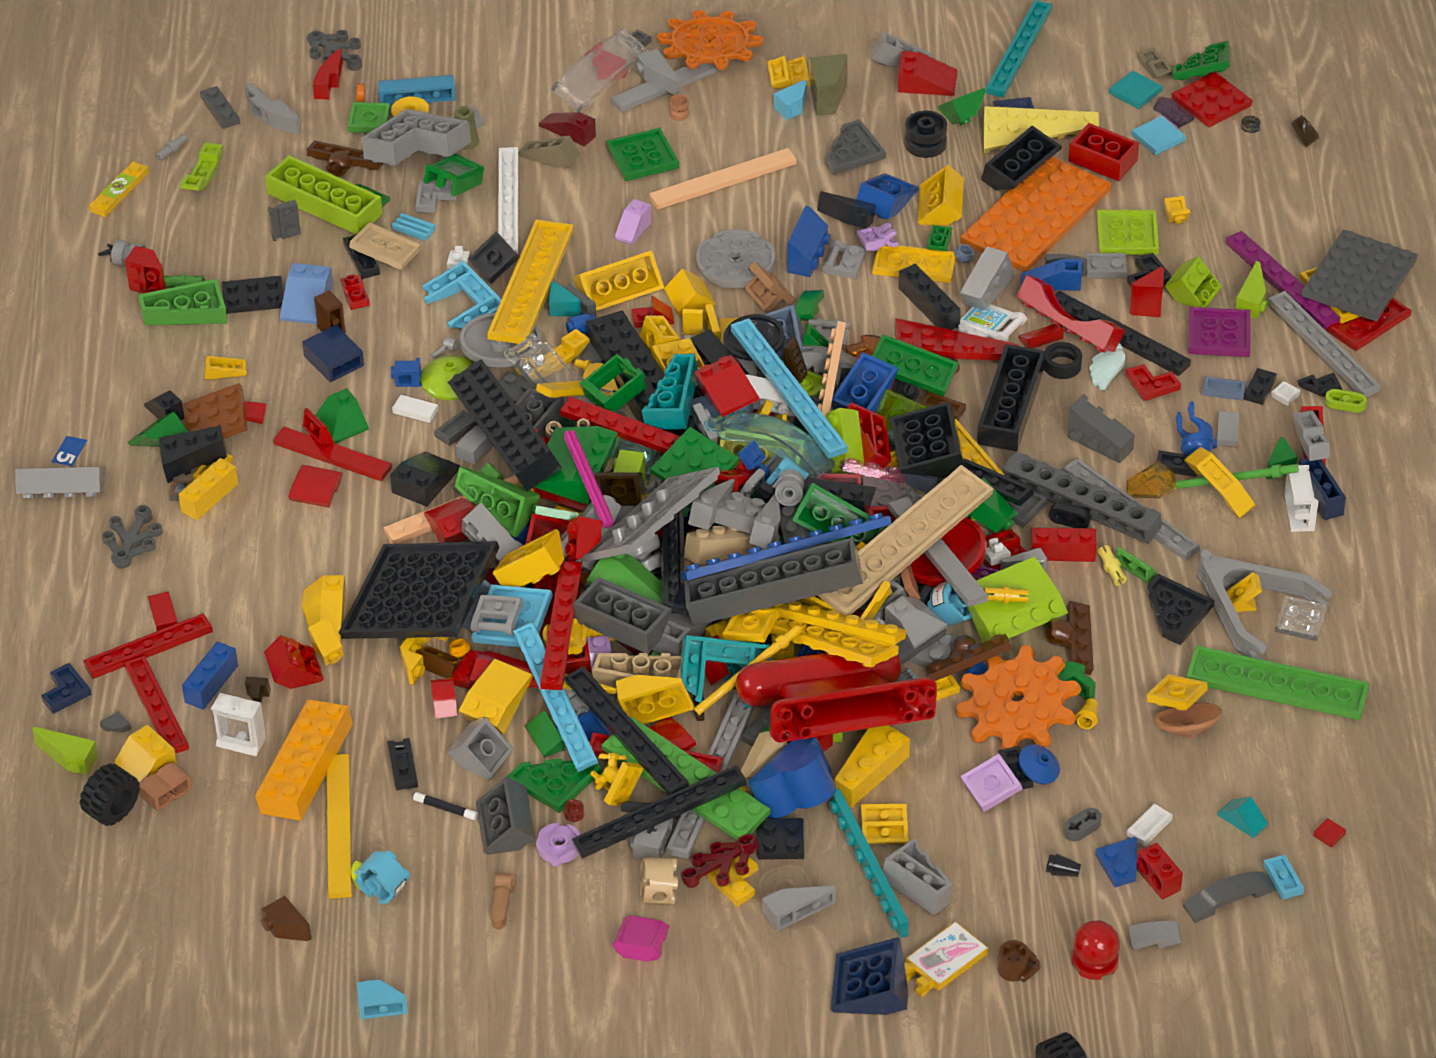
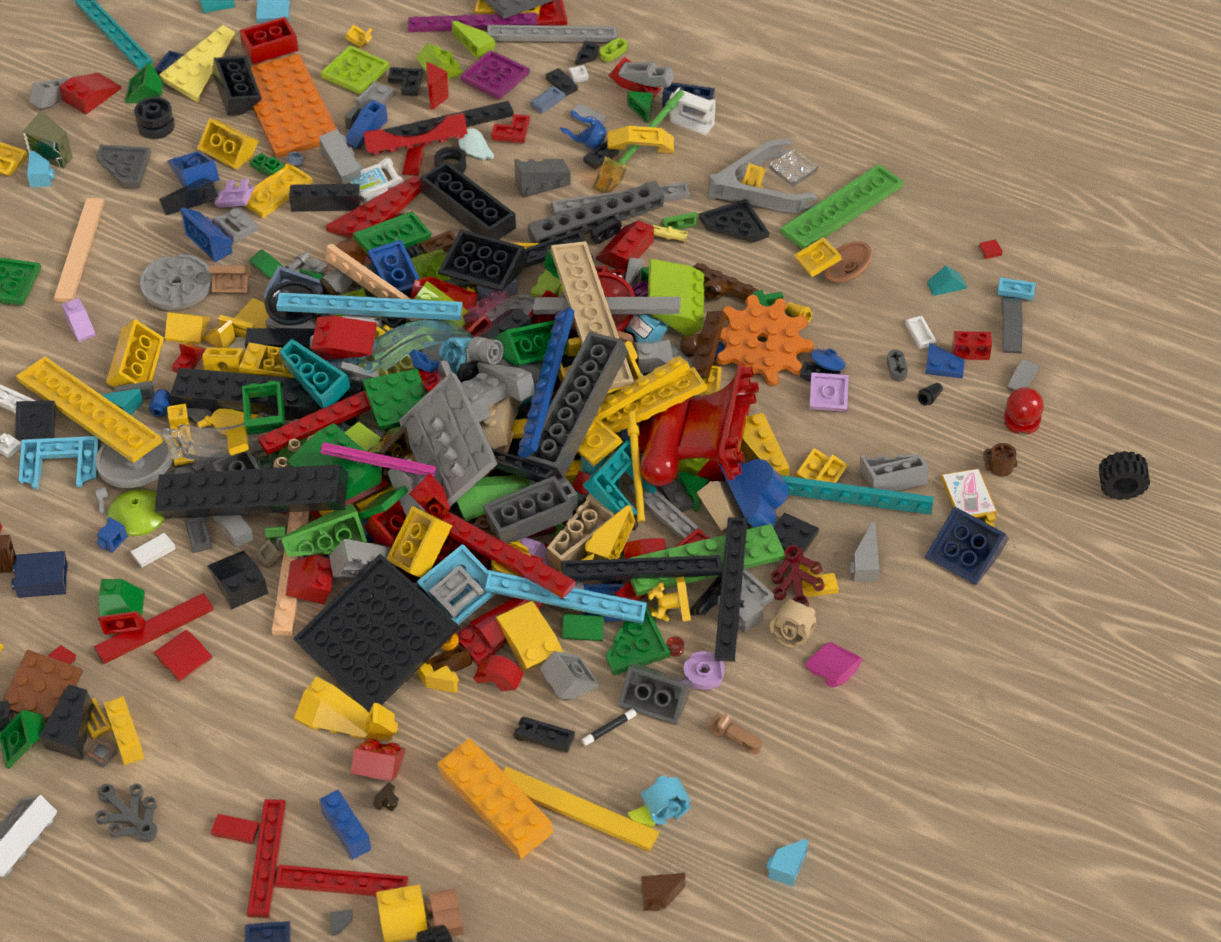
camera: 60 degrees left, 5 degrees up
(239, 724) = (427, 825): white window -> none
(1006, 595) = (679, 289): yellow pin -> none

